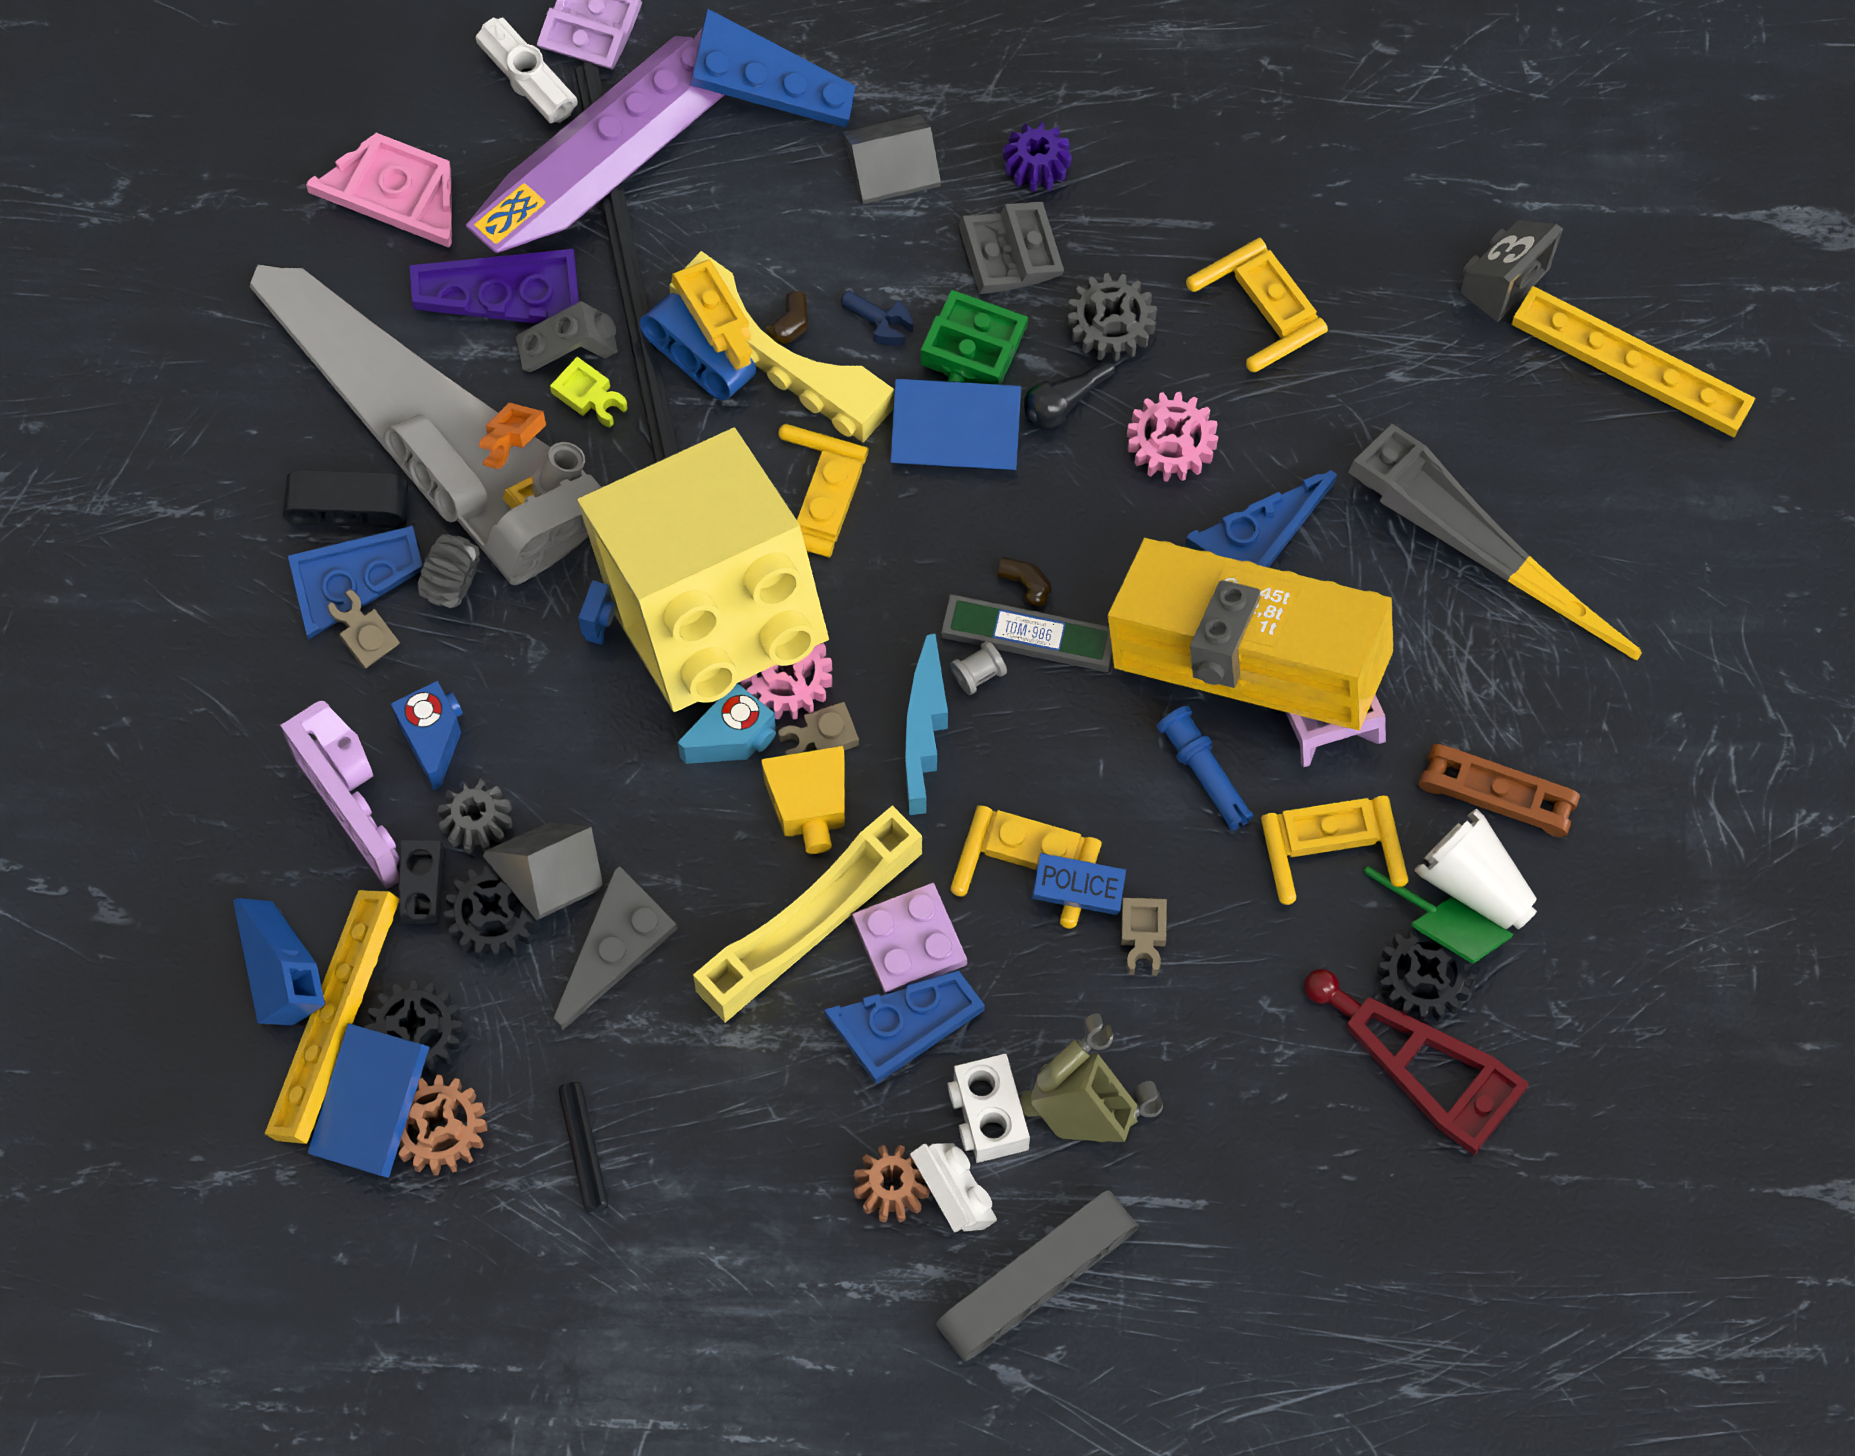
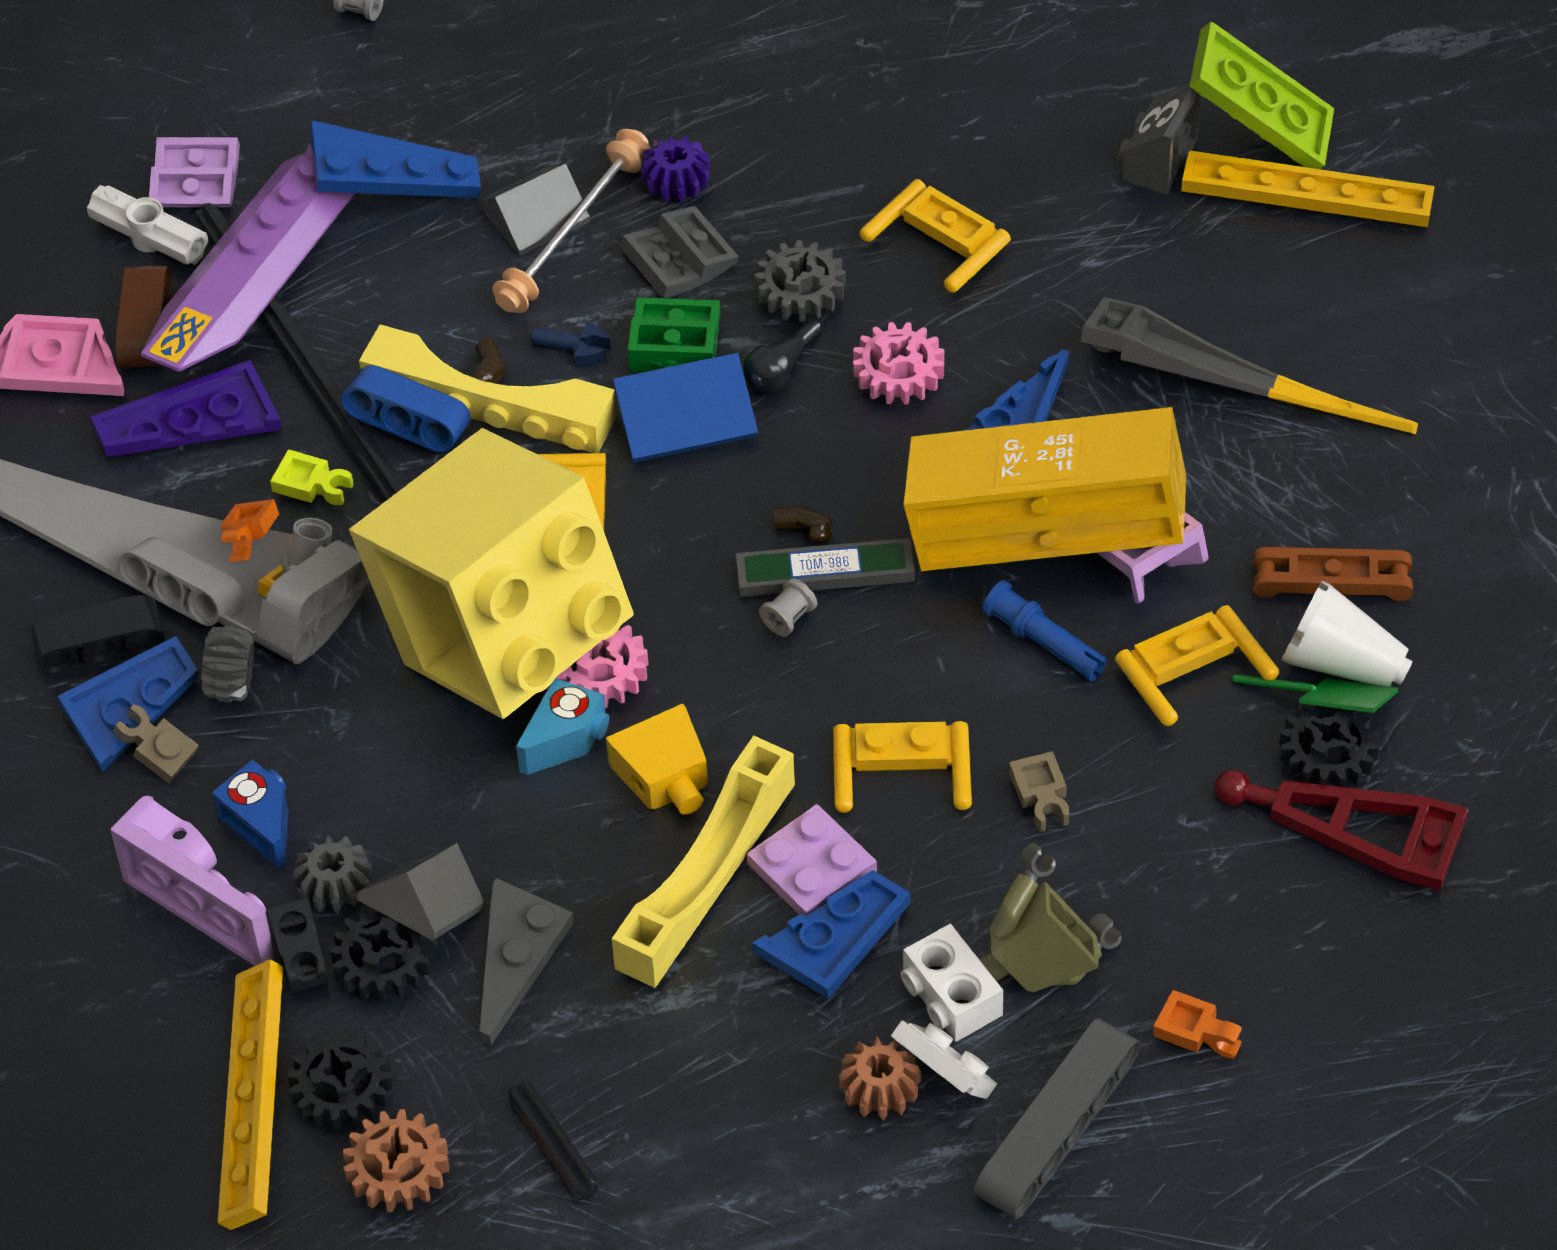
camera: 15 degrees left, 15 degrees down
(278, 965) = (184, 1068): blue slope -> none
(368, 1100) = (317, 1153): blue tile -> none
(495, 155) = (143, 298): none -> reddish brown beam
(565, 332) = (267, 433): dark grey bracket -> none
(596, 612) = (393, 656): blue plate -> none
(715, 311) = (416, 366): yellow hinge -> none
(823, 730) = (651, 701): dark tan plate -> none
(849, 242) = (518, 286): none -> light nougat axle
(925, 715) = (754, 668): dark azure slope -> none
(1078, 884) = (961, 762): blue tile -> none
(1192, 1219) = (1193, 1021): none -> orange plate
(1220, 633) = (1021, 488): dark grey bracket -> none
(1619, 255) = (1261, 97): none -> lime plate

